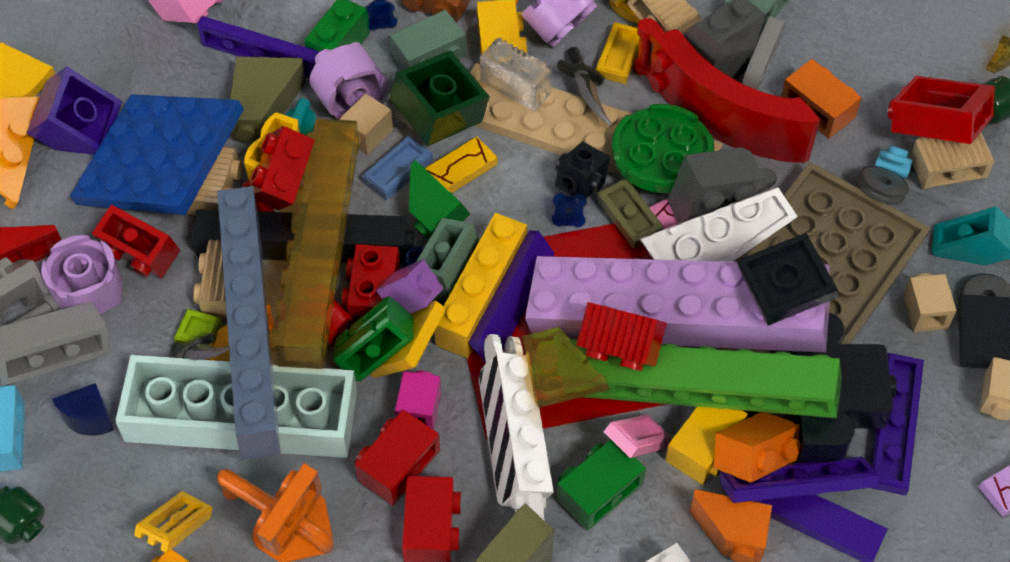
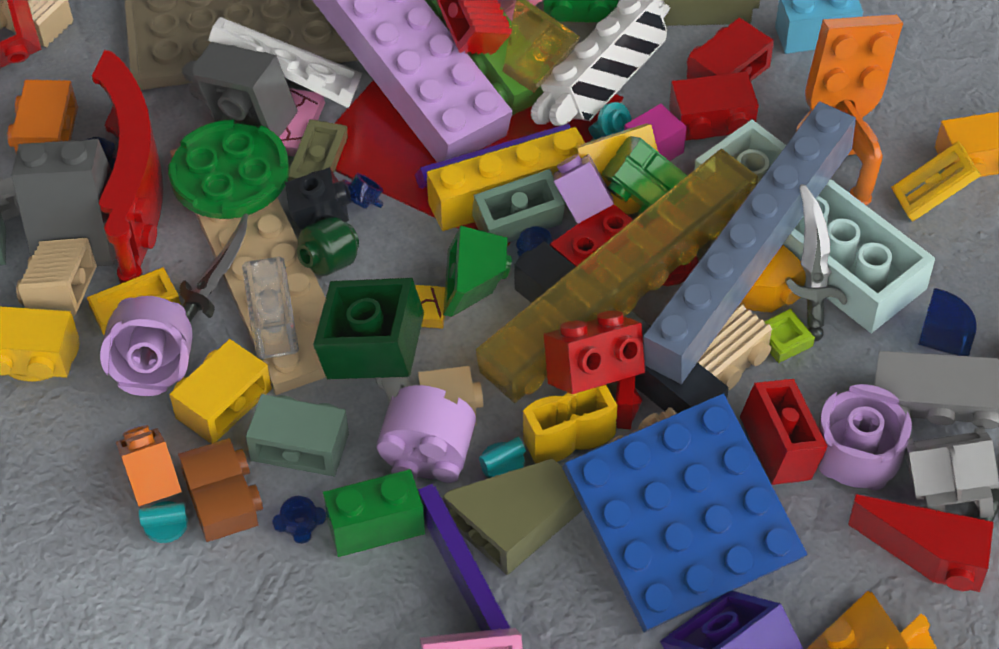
camera: 135 degrees left, 5 degrees down
(393, 169) = (451, 347): medium blue tile -> none
(464, 398) = (610, 120): none -> teal plate
(540, 150) = (327, 246): none -> dark green head
(882, 184) = (103, 30): dark grey piece -> none
(895, 160) = (63, 45): medium azure plate -> none

